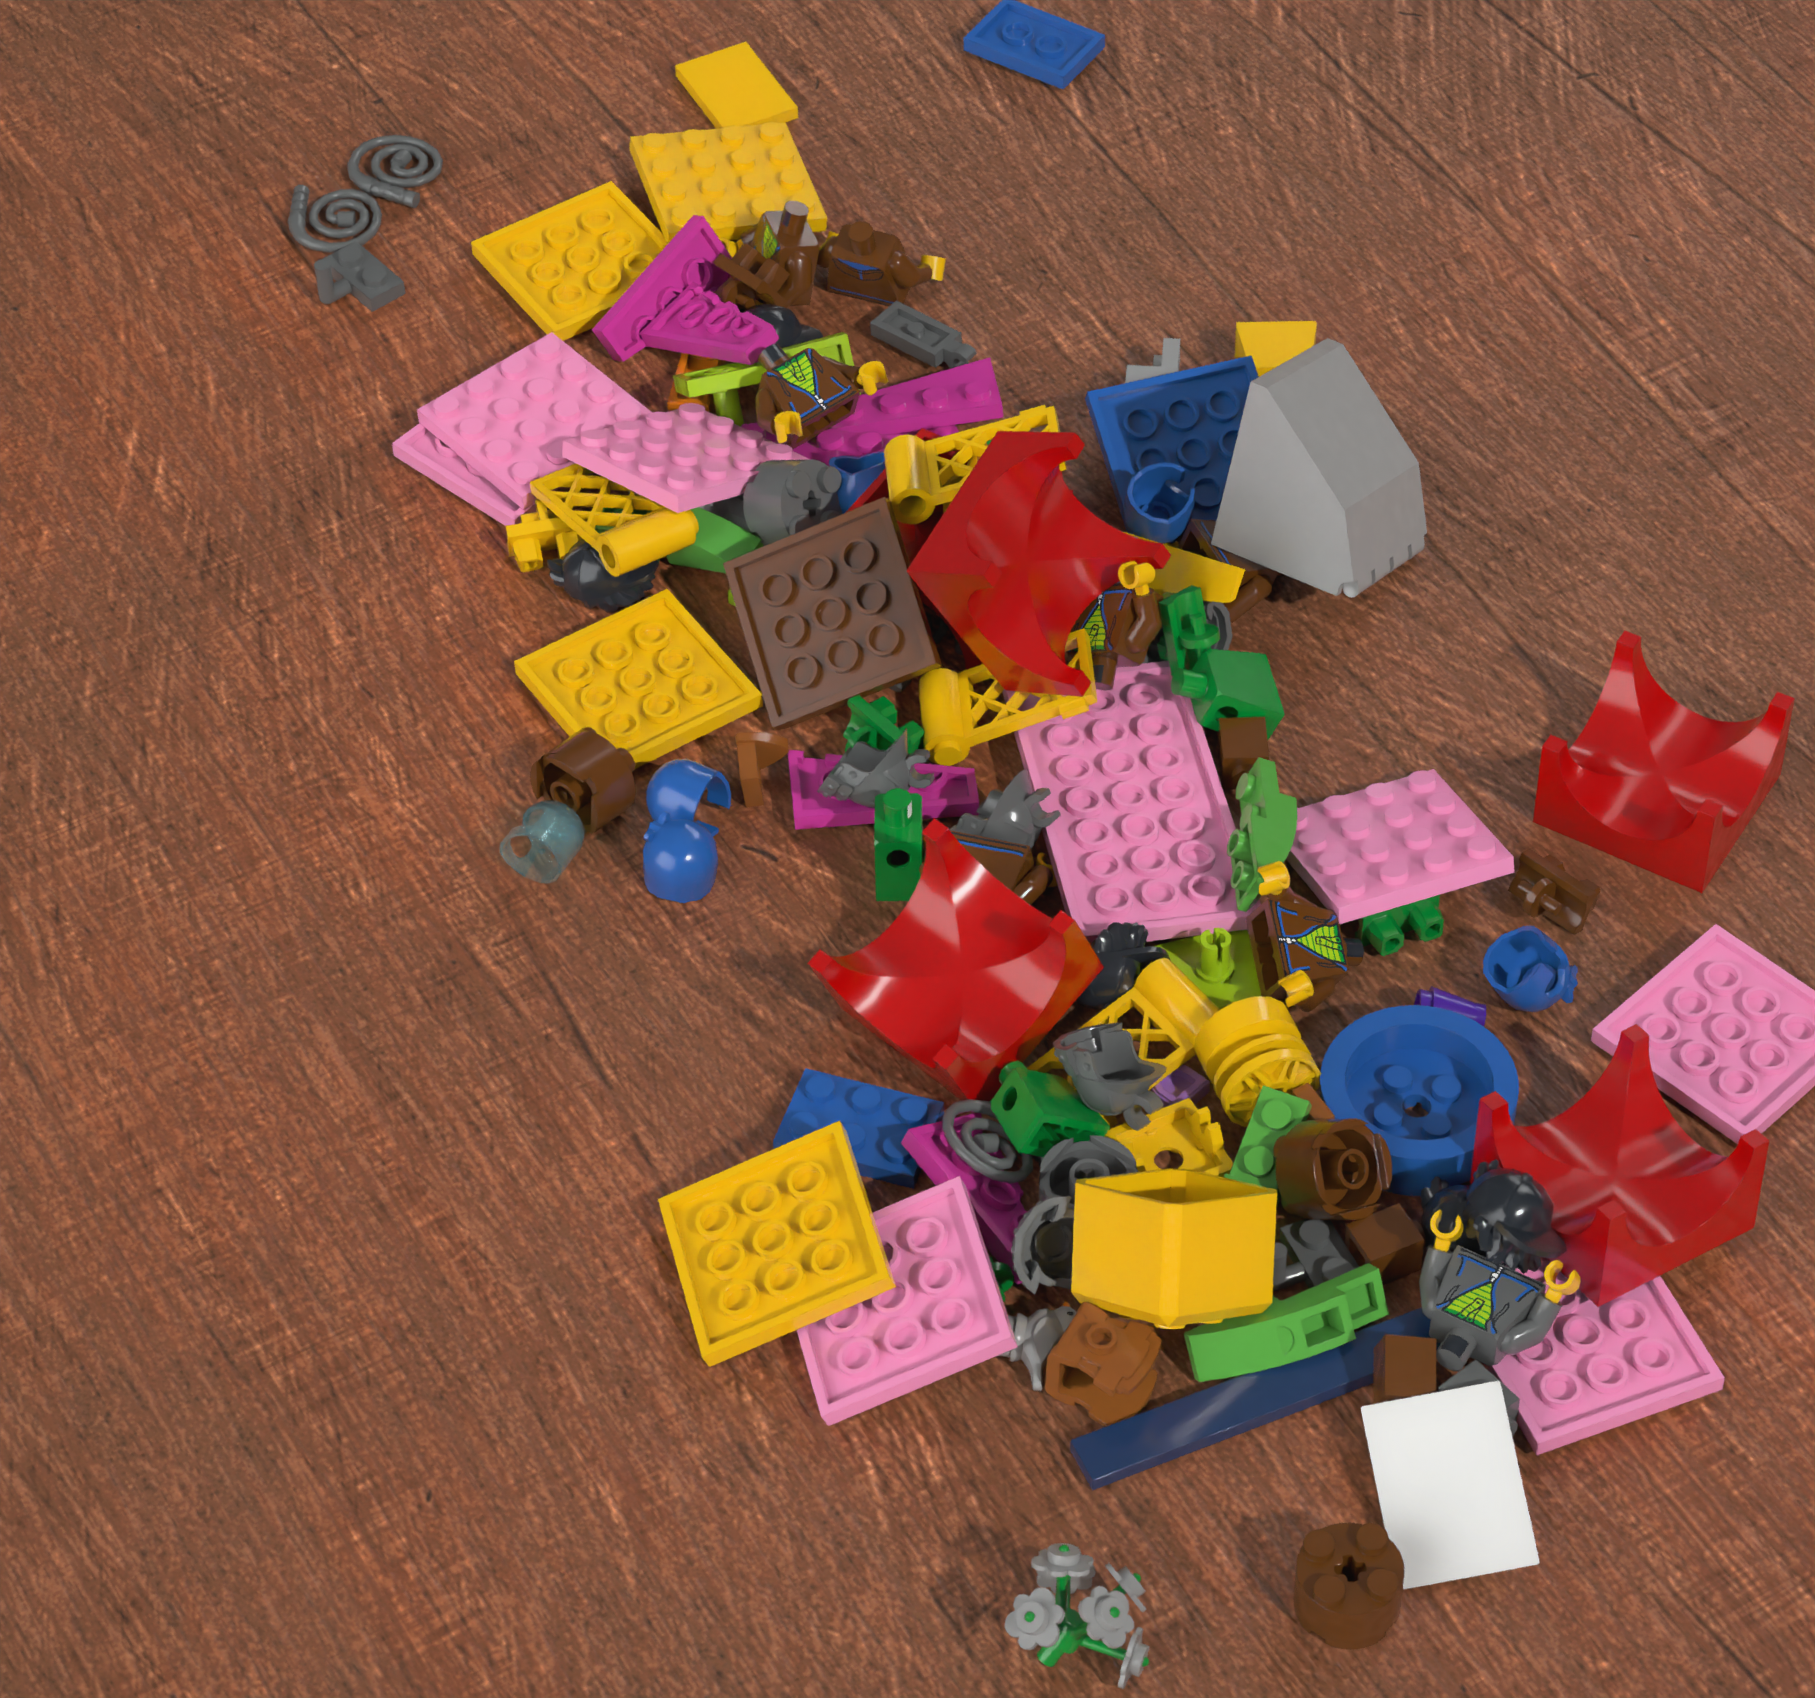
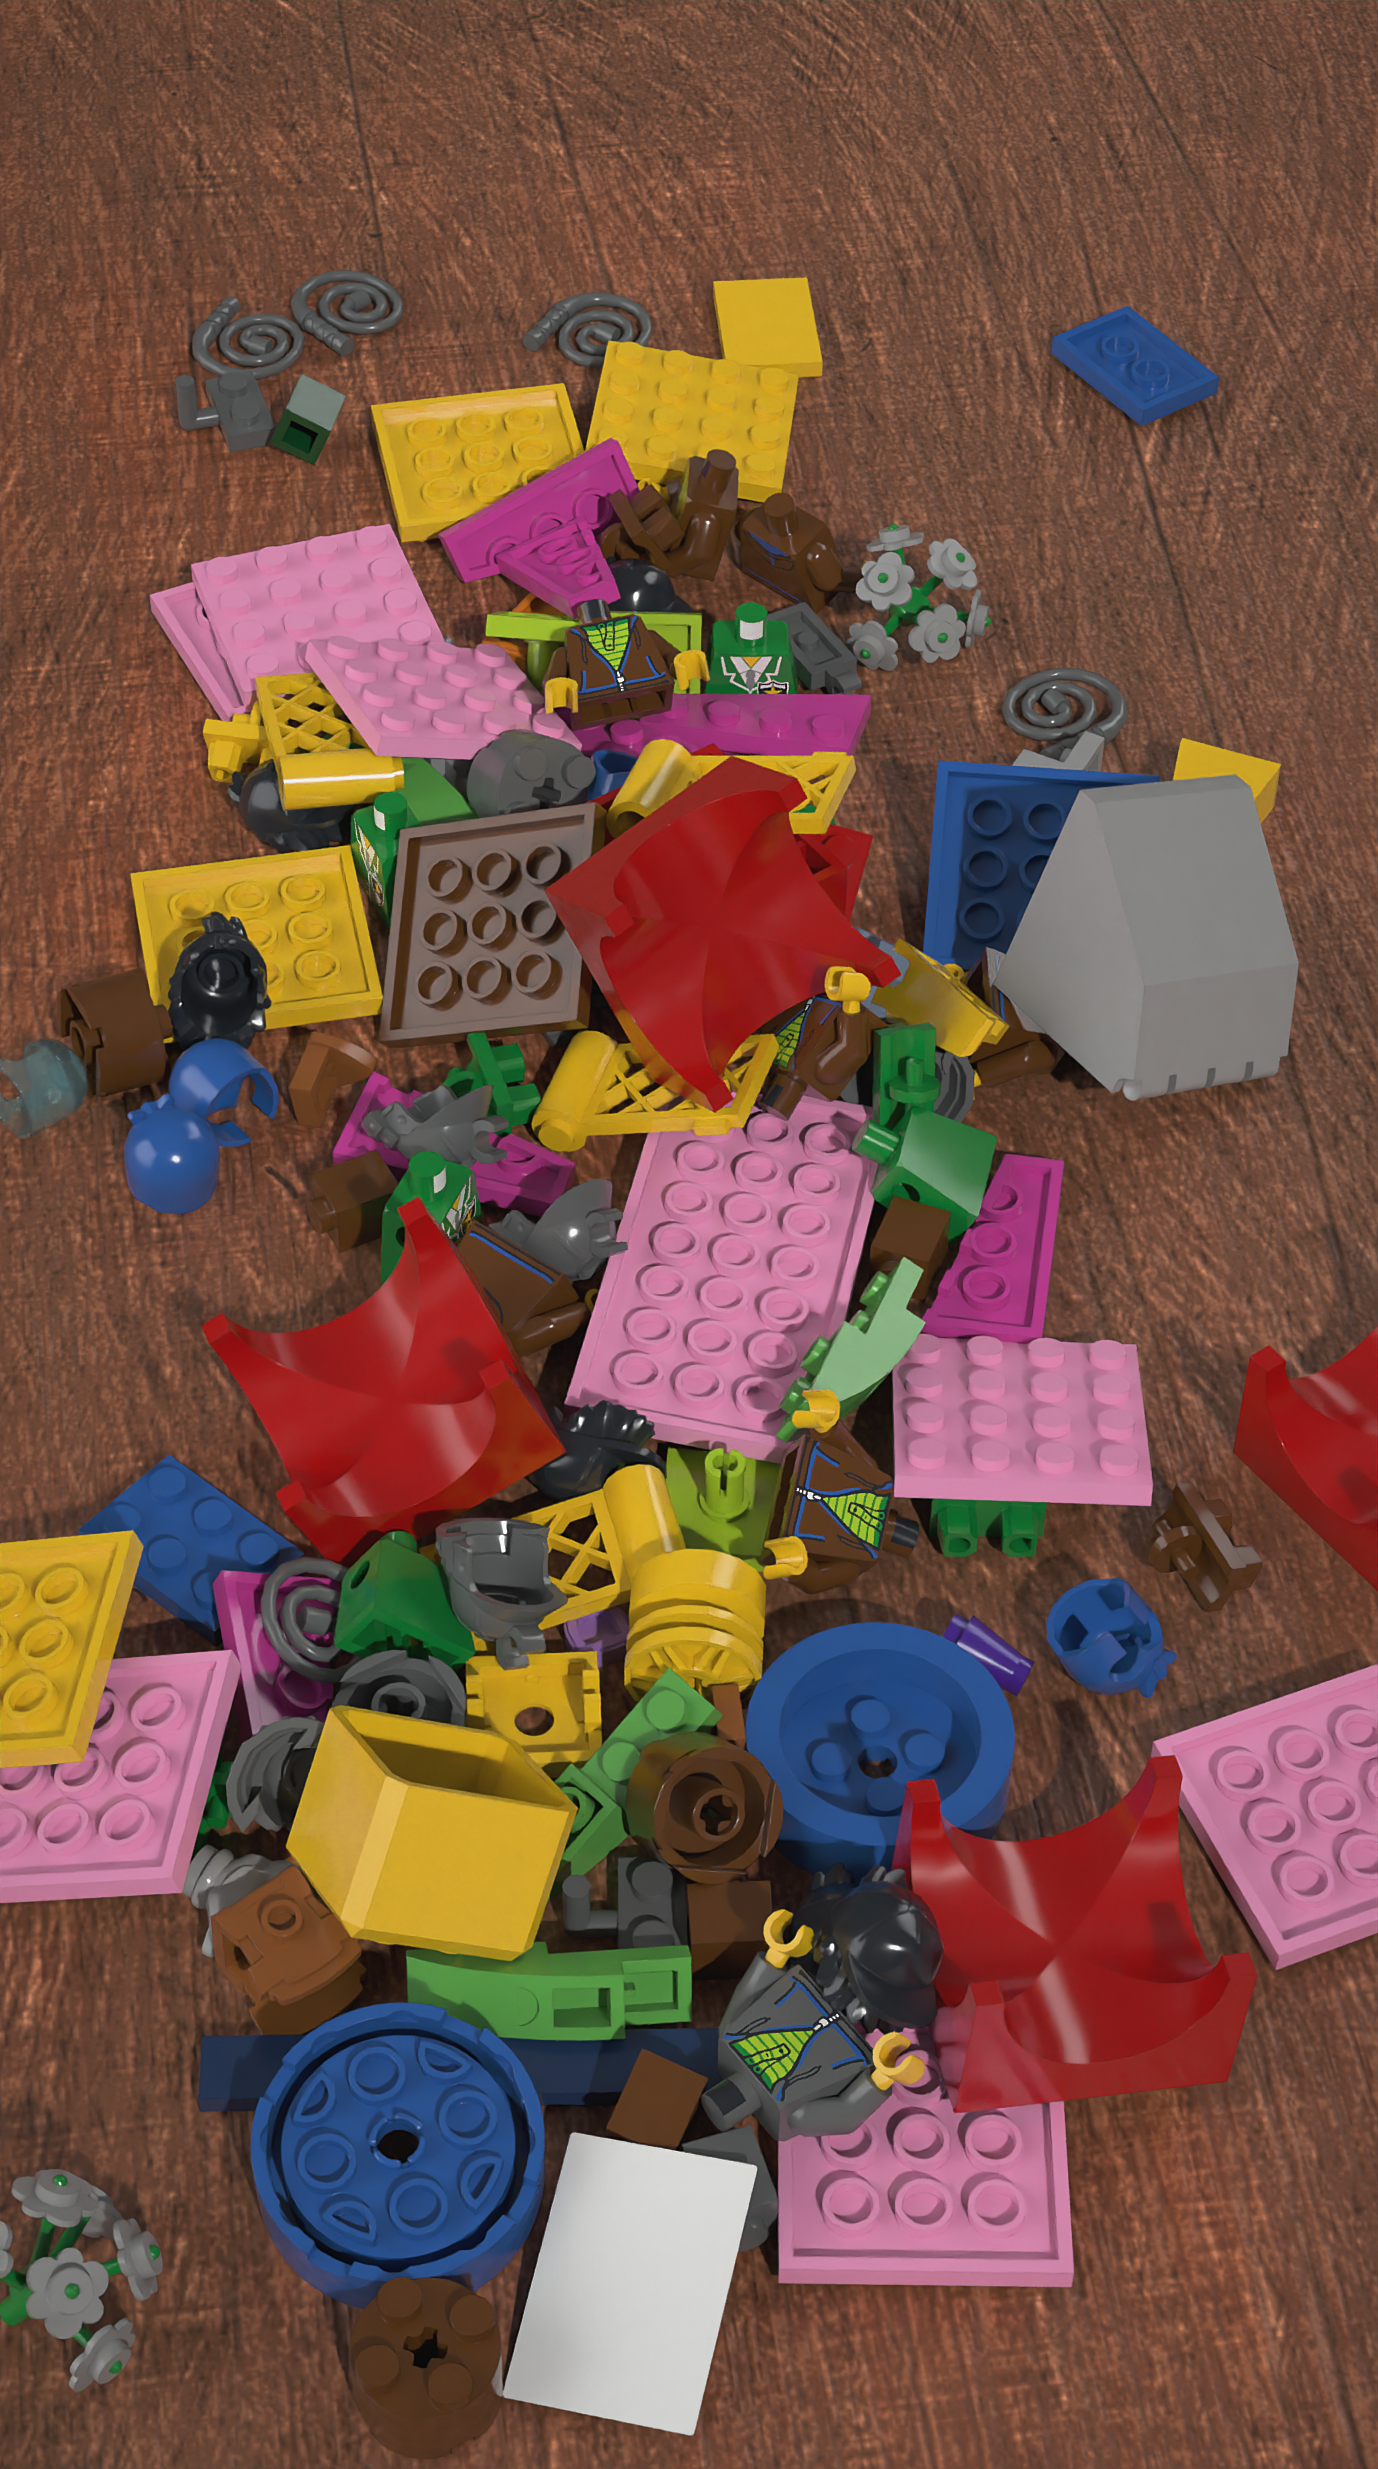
camera: 20 degrees right, 0 degrees up
(429, 267) = (308, 419): none -> brick
(612, 130) = (568, 307): none -> dark grey piece
(651, 722) = (219, 986): none -> black hair
(704, 590) = (375, 848): none -> green torso
(832, 846) = (351, 1200): none -> reddish brown brick
(895, 346) = (750, 655): none -> green torso
(972, 275) = (889, 589): none -> light grey plant
(1123, 325) = (1060, 708): none -> dark grey piece
(1157, 507) = (956, 918): blue helmet -> none
(1244, 1510) = (362, 2219): none -> blue brick
(1312, 739) = (1004, 1259): none -> dark pink wing

